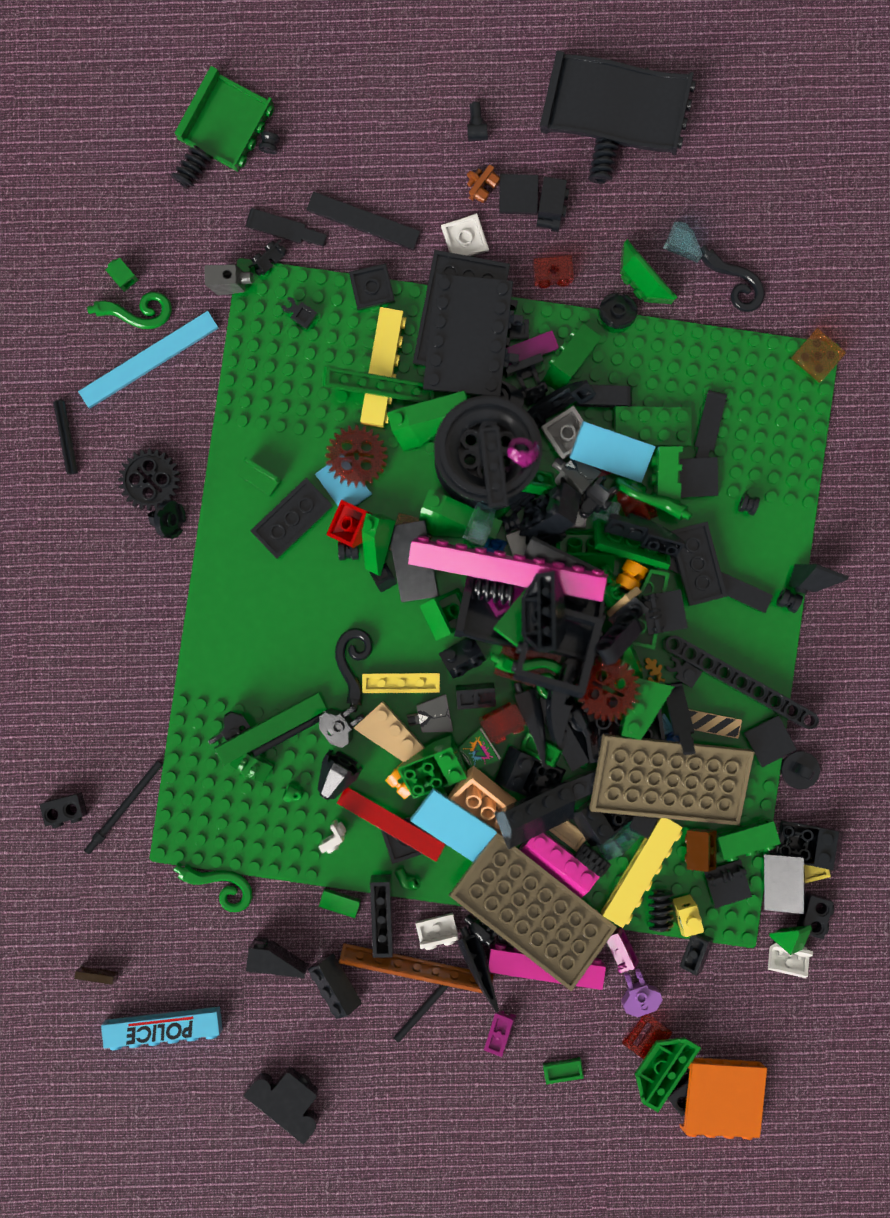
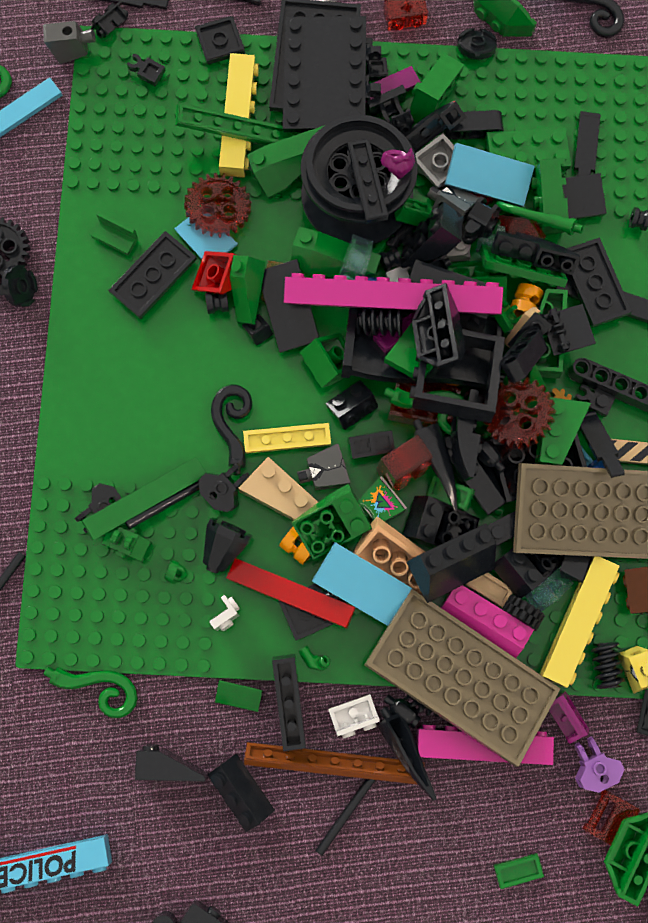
camera: 10 degrees left, 10 degrees down
(499, 1033) = (439, 831): magenta hinge -> none

